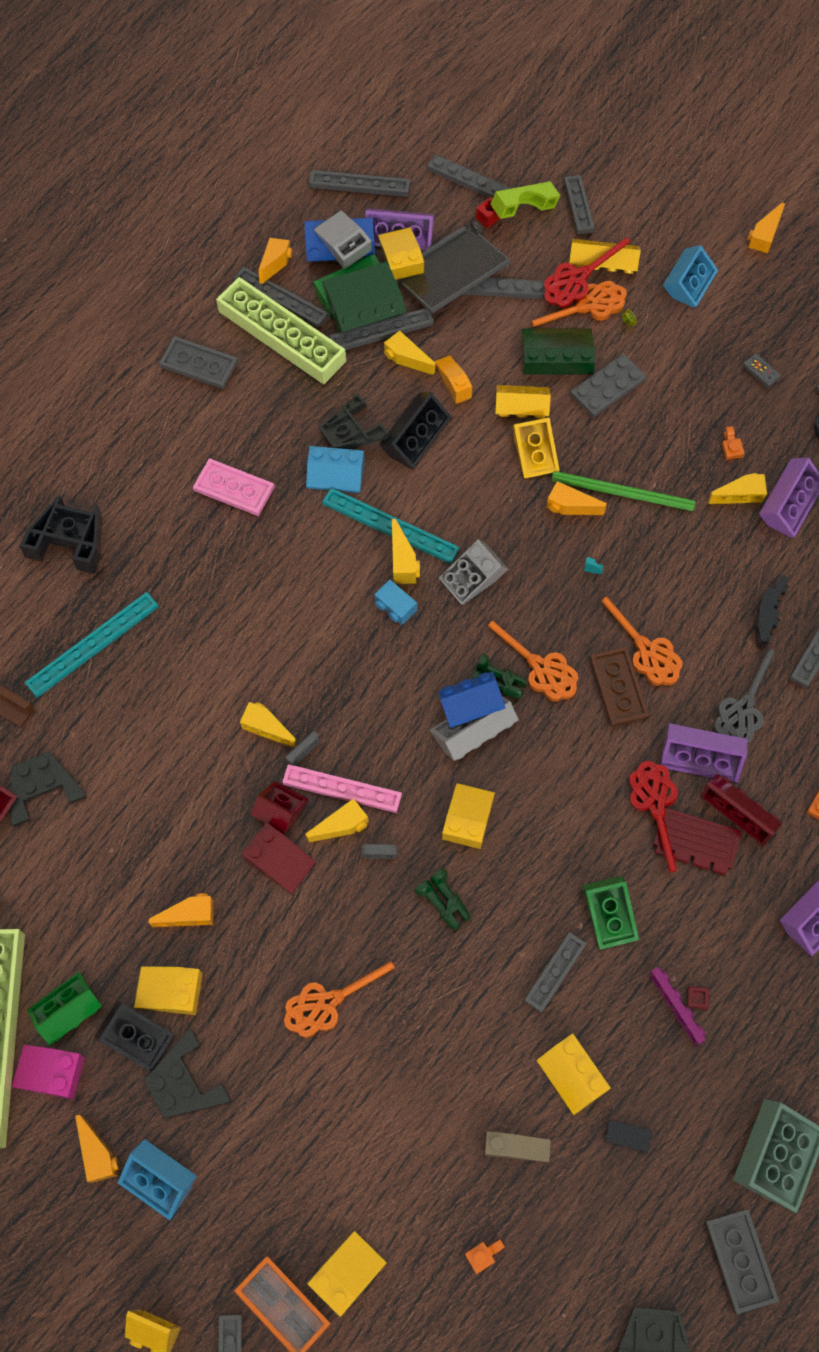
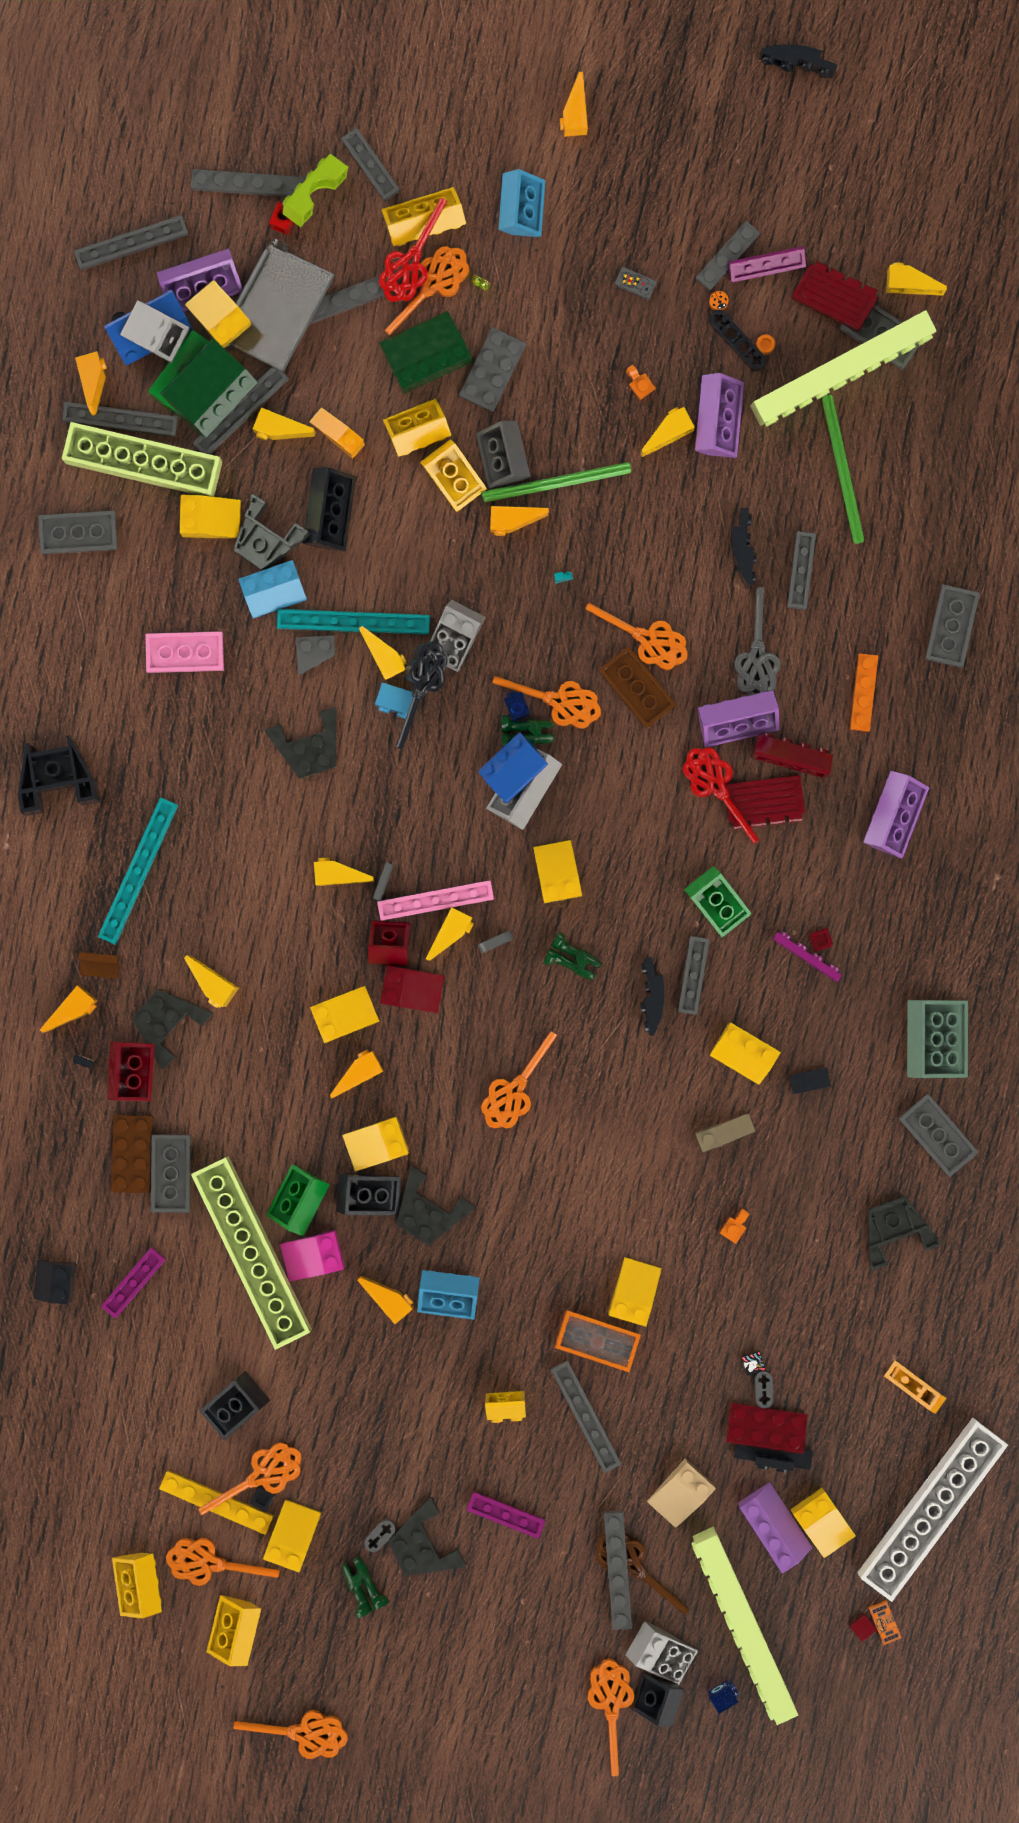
camera: 20 degrees left, 20 degrees up
(100, 772) = (214, 986): none -> yellow slope
(203, 852) = (344, 1014): none -> yellow slope
(297, 614) = (312, 753): none -> pearl dark grey wing
(311, 394) = (209, 517): none -> yellow slope
(344, 534) = (314, 651): none -> dark grey wing
(426, 583) = (426, 675): none -> black piece
(500, 653) = (516, 705): none -> clear blue brick
(504, 980) = (652, 1005): none -> black slope
(587, 448) = (502, 454): none -> dark grey slope

